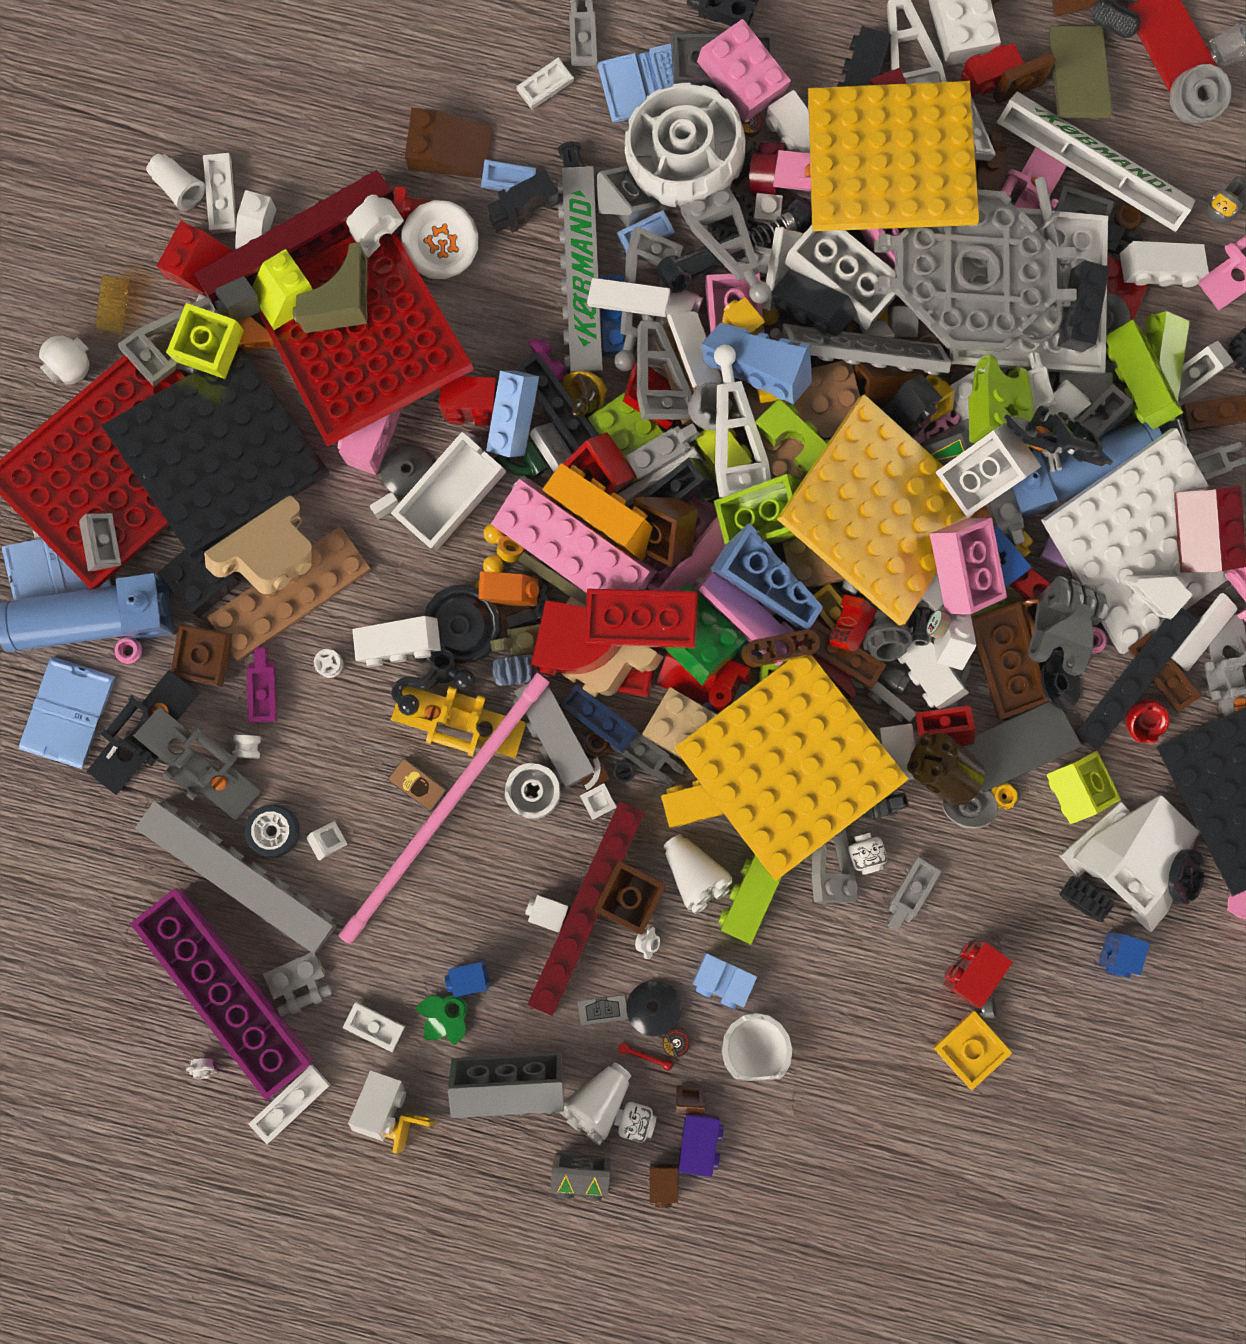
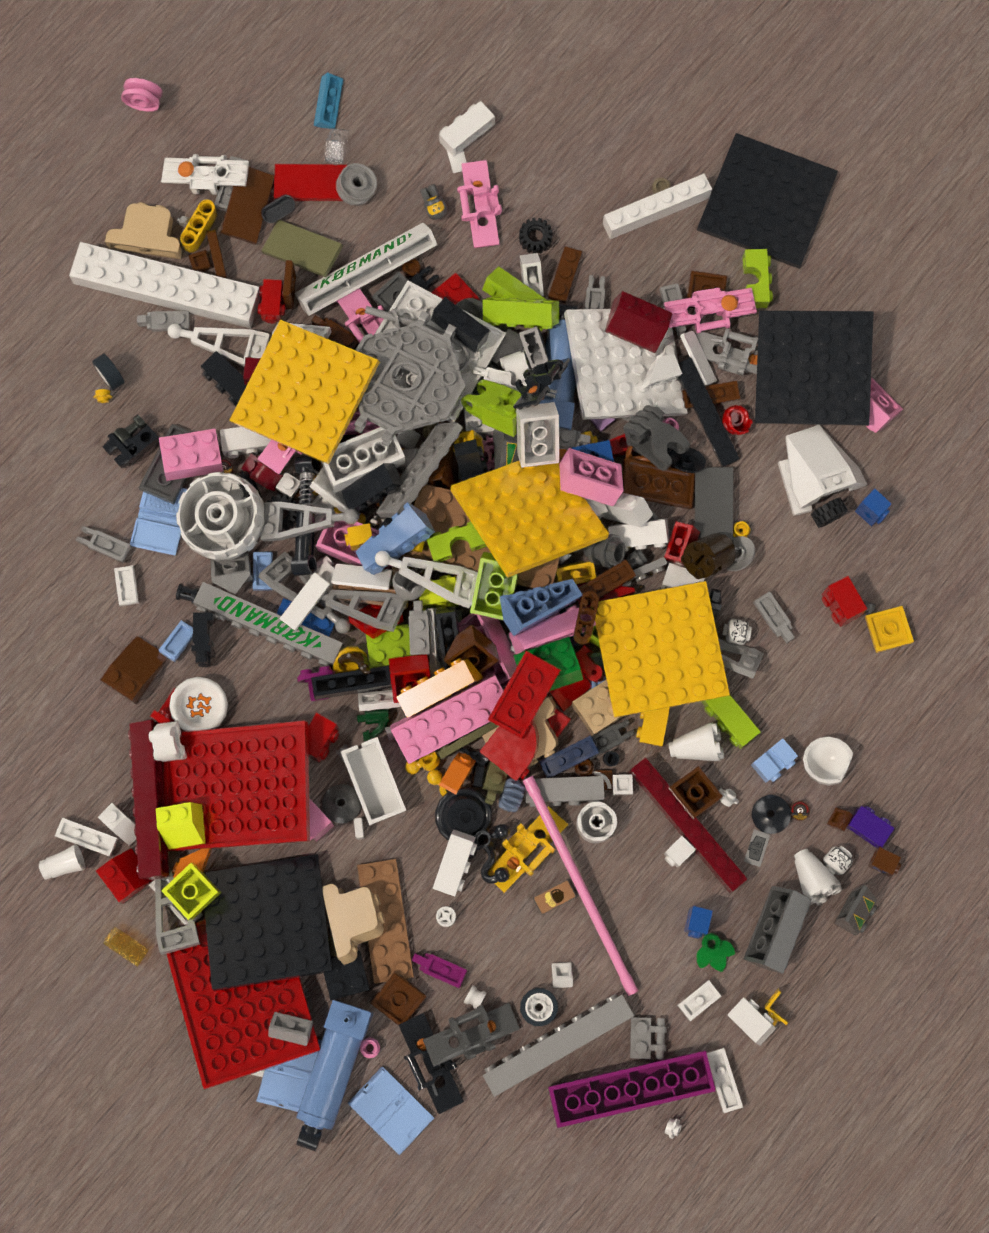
camera: 65 degrees left, 5 degrees down
(64, 359) = (149, 996): white plant -> none
(237, 300) = (172, 858): dark grey brick -> none
(338, 301) = (211, 790): olive arch -> none
(512, 413) = (344, 713): light blue brick -> none
(623, 1048) = (787, 846): red hinge -> none
(852, 623) = (590, 566): red leg -> none
(919, 633) = (613, 526): black pin -> none
(938, 624) = (617, 514): dark tan tile -> none
(1083, 787) = (759, 479): neon yellow slope -> none
(1164, 263) = (454, 262): white brick -> none
(1185, 876) = (843, 446): black tile -> none

